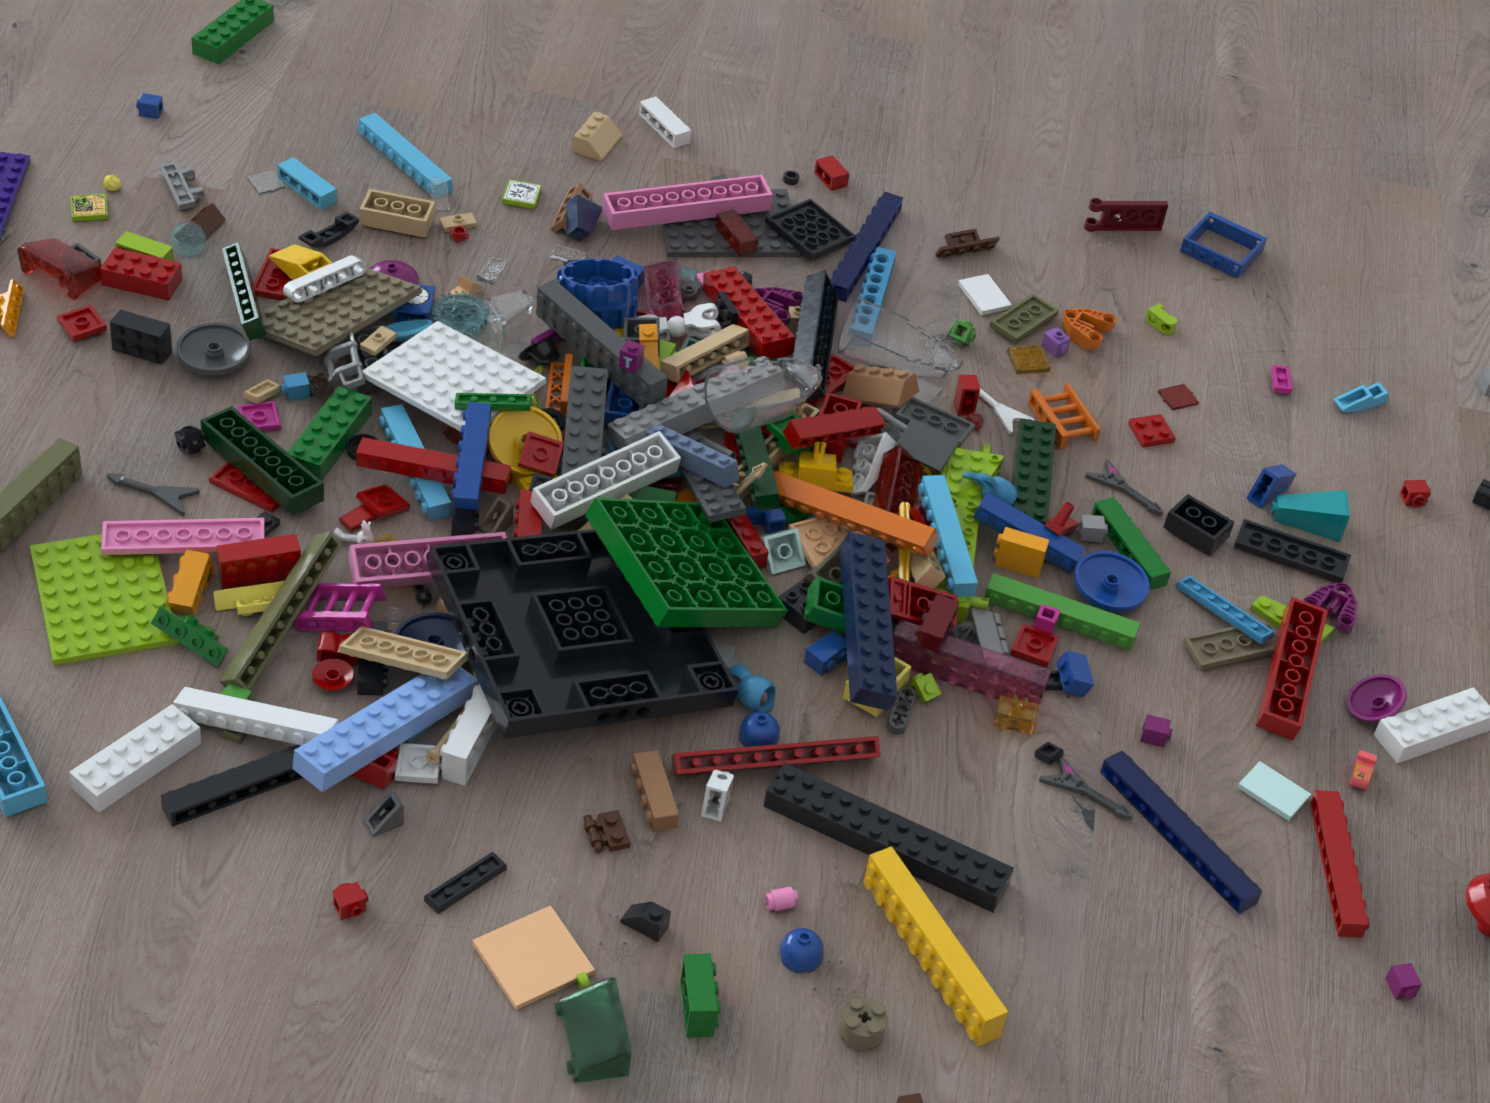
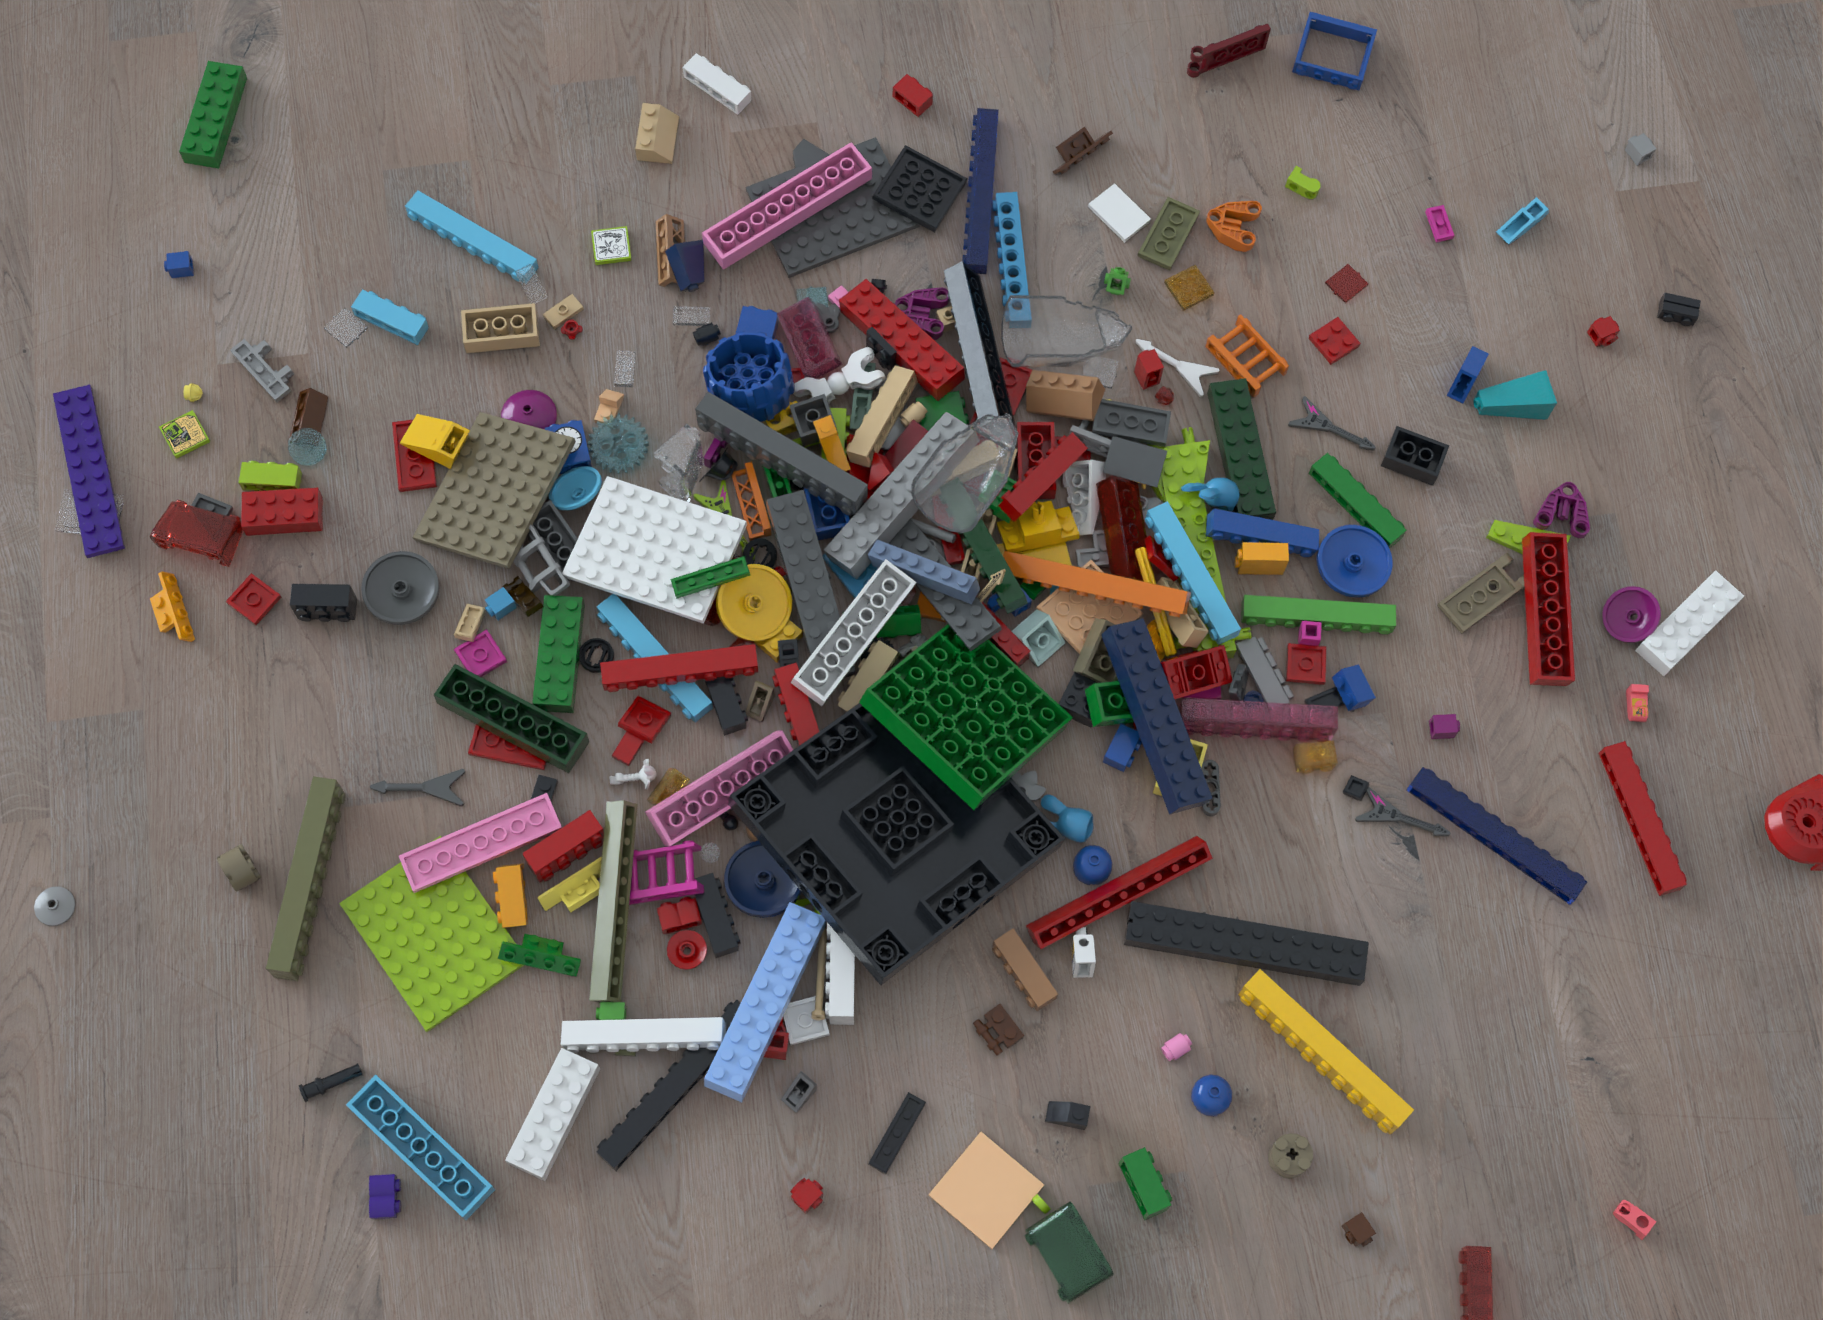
camera: 15 degrees left, 25 degrees up
(190, 439) = (430, 715): black brick -> none
(244, 292) = (397, 503): brick -> none
(335, 275) = (470, 456): white beam -> none
(343, 225) = (443, 377): black slope -> none
(378, 340) = (560, 524): tan plate -> none
(404, 652) = (749, 916): tan plate -> none
(472, 456) = (718, 653): blue brick -> none
(540, 454) = (776, 615): red plate -> none
(631, 356) = (826, 477): magenta brick -> none
(737, 233) = (851, 228): clear red brick -> none
(791, 177) = (872, 115): black tile -> none
(925, 687) = (1222, 753): lime bracket -> none
(936, 623) = (1219, 694): dark red brick -> none
(1056, 342) = (1210, 256): medium lavender brick -> none
(1062, 522) = (1289, 507): red piece -> none
(1092, 528) = (1317, 498): light grey brick -> none
(1225, 609) = (1467, 554): dark azure tile -> none
(1274, 791) = (1565, 754): light aqua tile -> none
(1292, 551) = (1508, 452): black plate -> none
(1403, 981) = (1729, 930): magenta brick -> none

